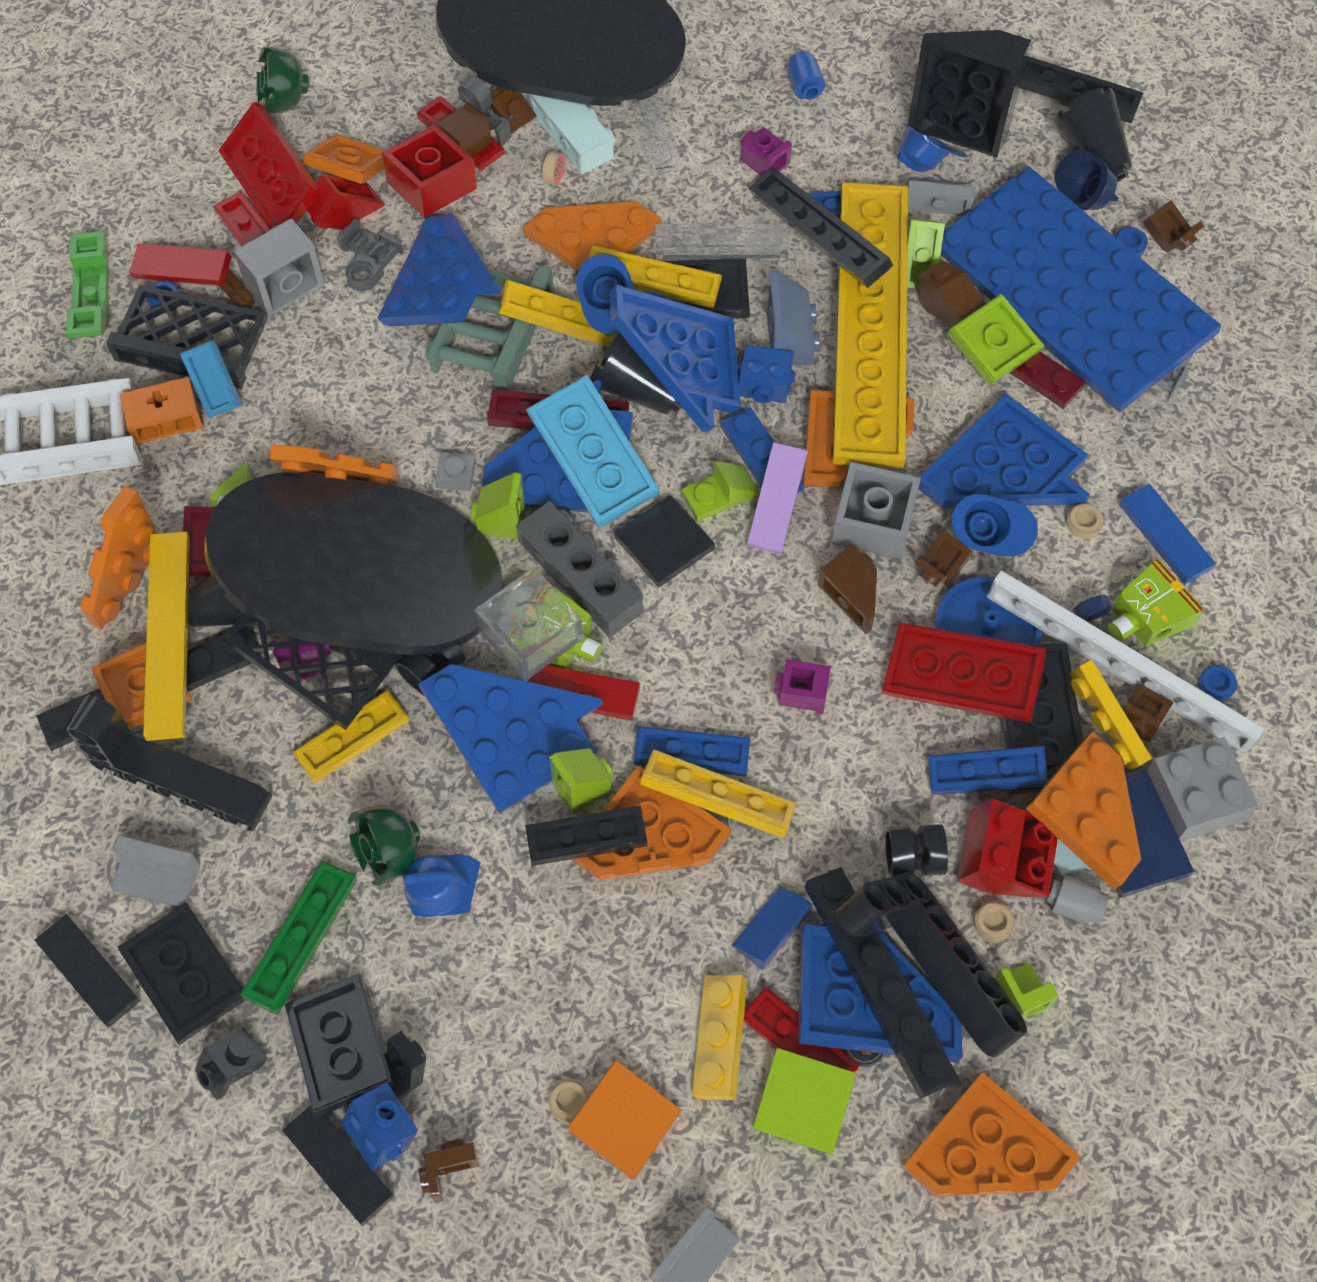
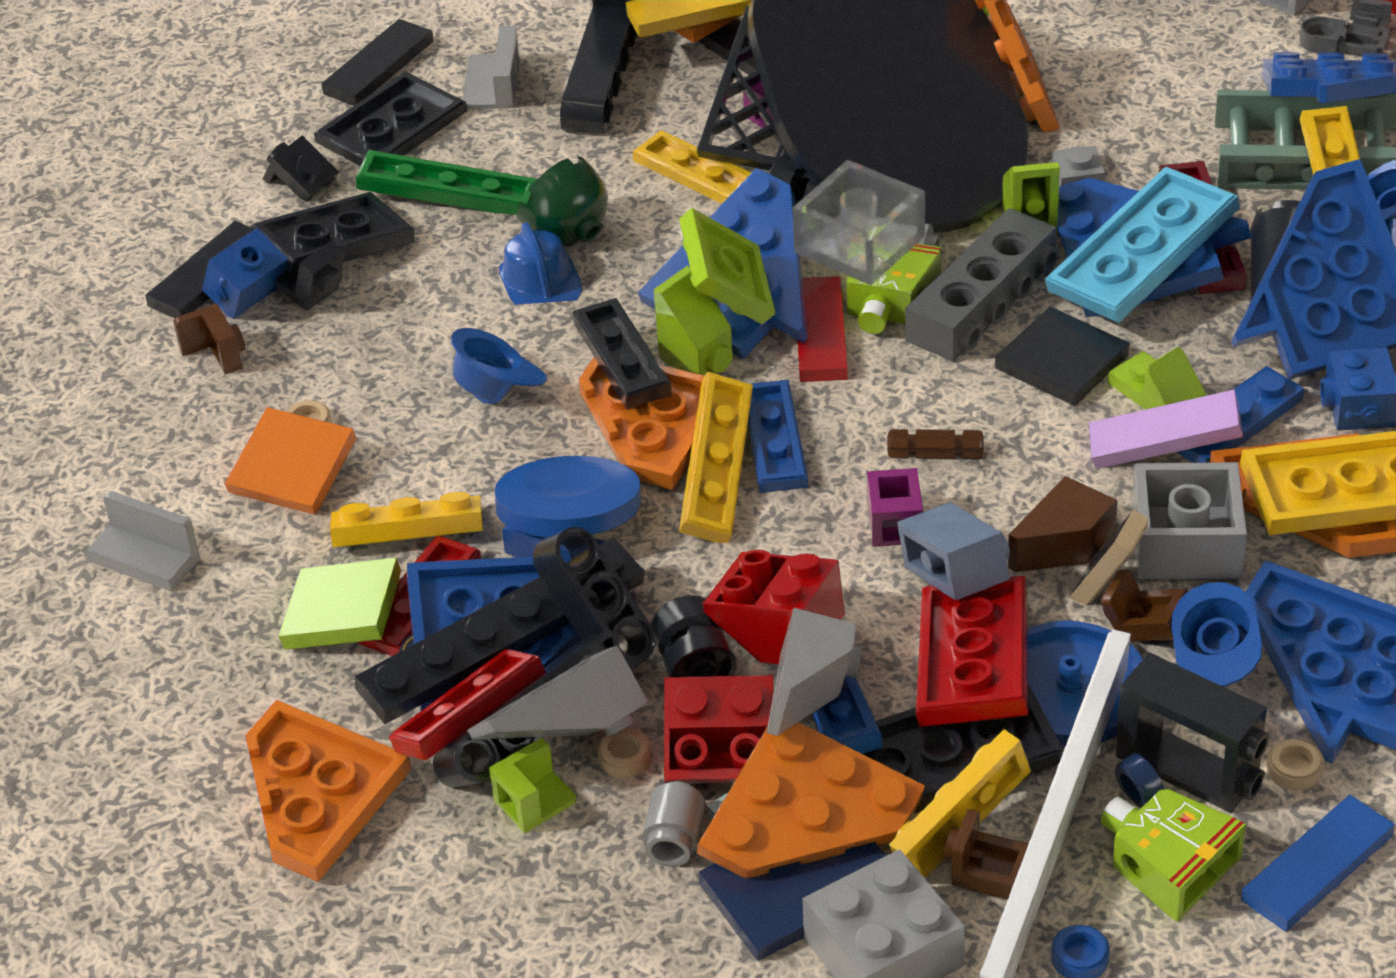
camera: 80 degrees right, 20 degrees down
(554, 730) = (726, 266): none -> lime plate
(569, 936) = (490, 365): none -> blue piece
(735, 646) = (935, 443): none -> reddish brown axle
(735, 908) = (567, 493): none -> blue piece
(870, 658) = (954, 550): none -> sand blue brick
(899, 782) = (762, 589): none -> red slope
(907, 565) = (1110, 558): none -> tan tile
(957, 1018) = (466, 704): none -> red tile
(986, 948) = (578, 702): none -> light grey slope
(997, 771) = (811, 667): none -> light grey slope
(1080, 560) = (1169, 691): none -> black window

